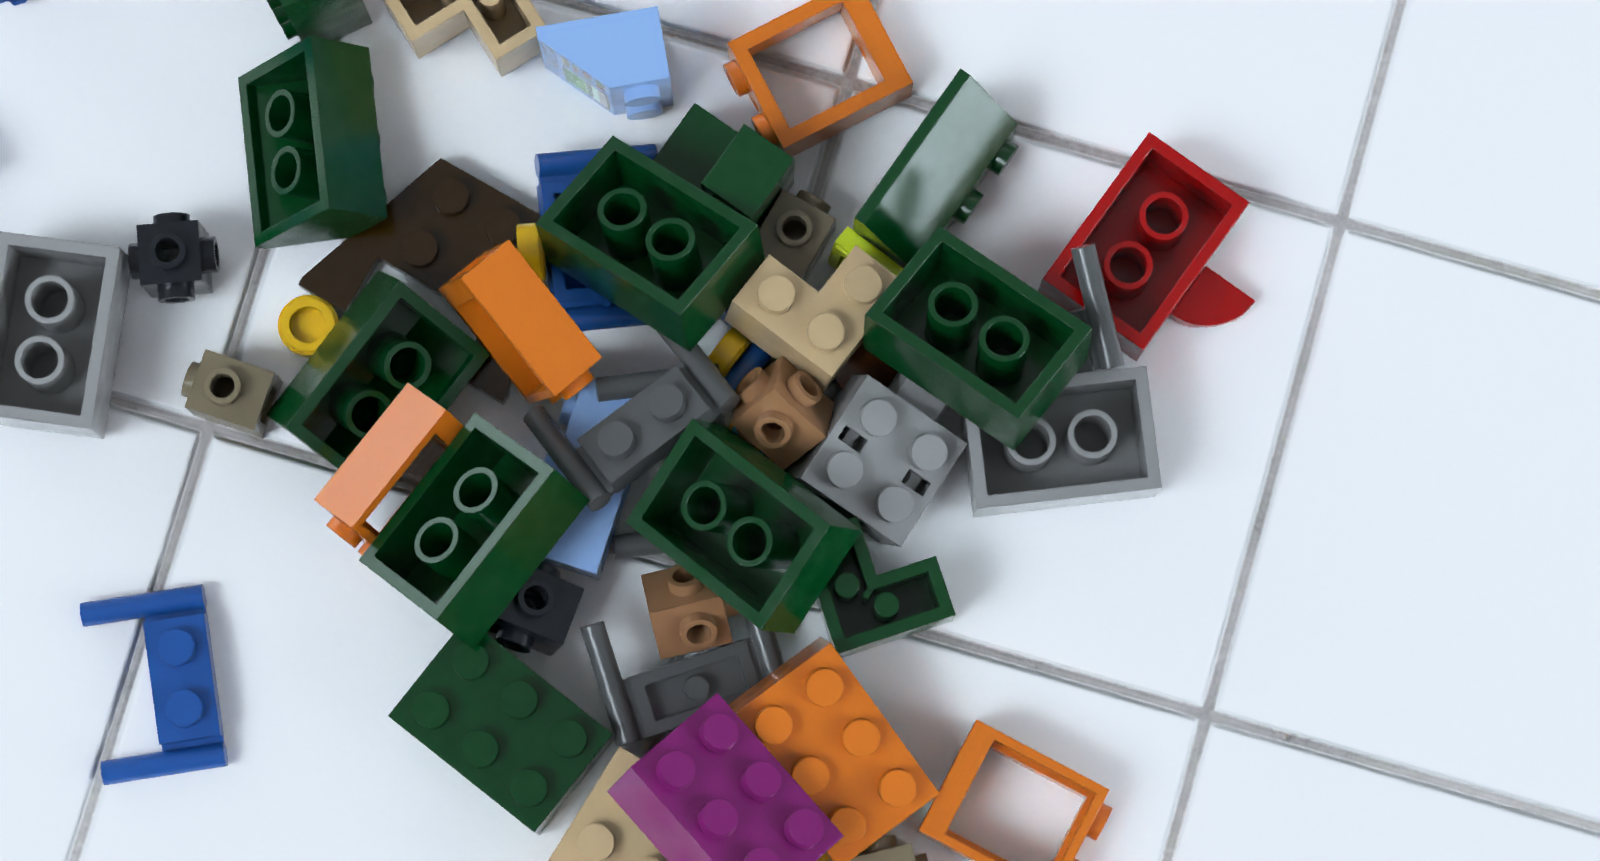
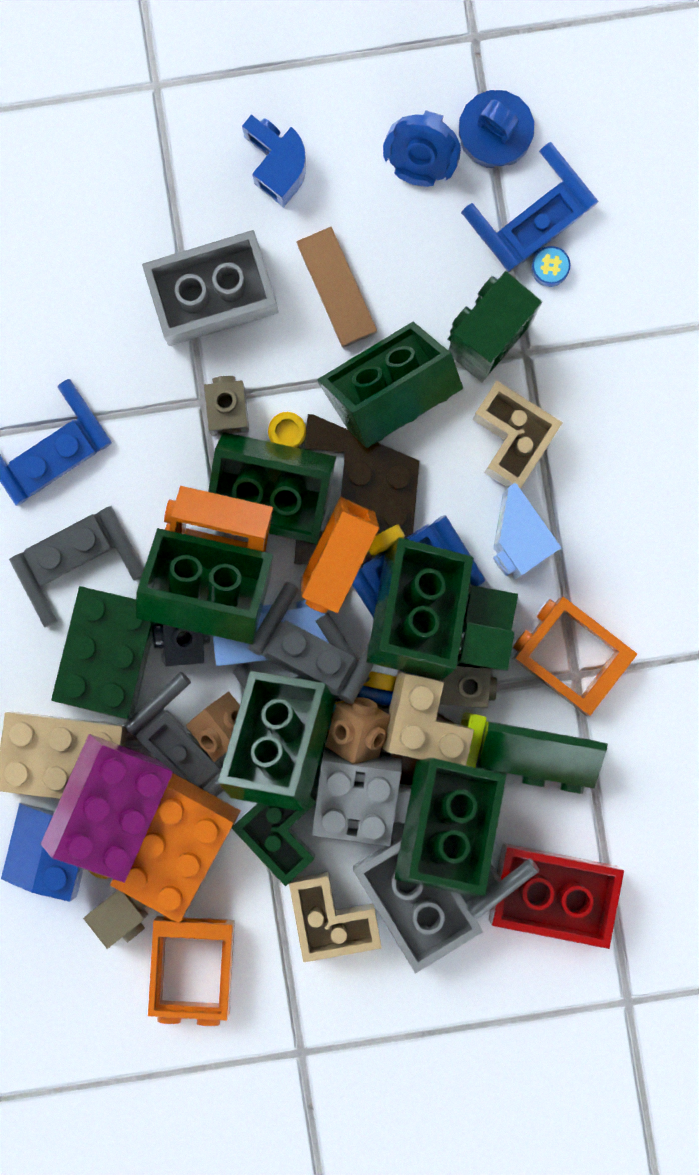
camera: 70 degrees right, 5 degrees up
(136, 161) = (336, 287): none -> medium nougat tile
(185, 275) = (288, 350): black brick -> none
(330, 719) = (69, 550): none -> dark grey plate
(1040, 595) = (328, 931): none -> tan brick
(1211, 302) = (543, 951): red tile -> none

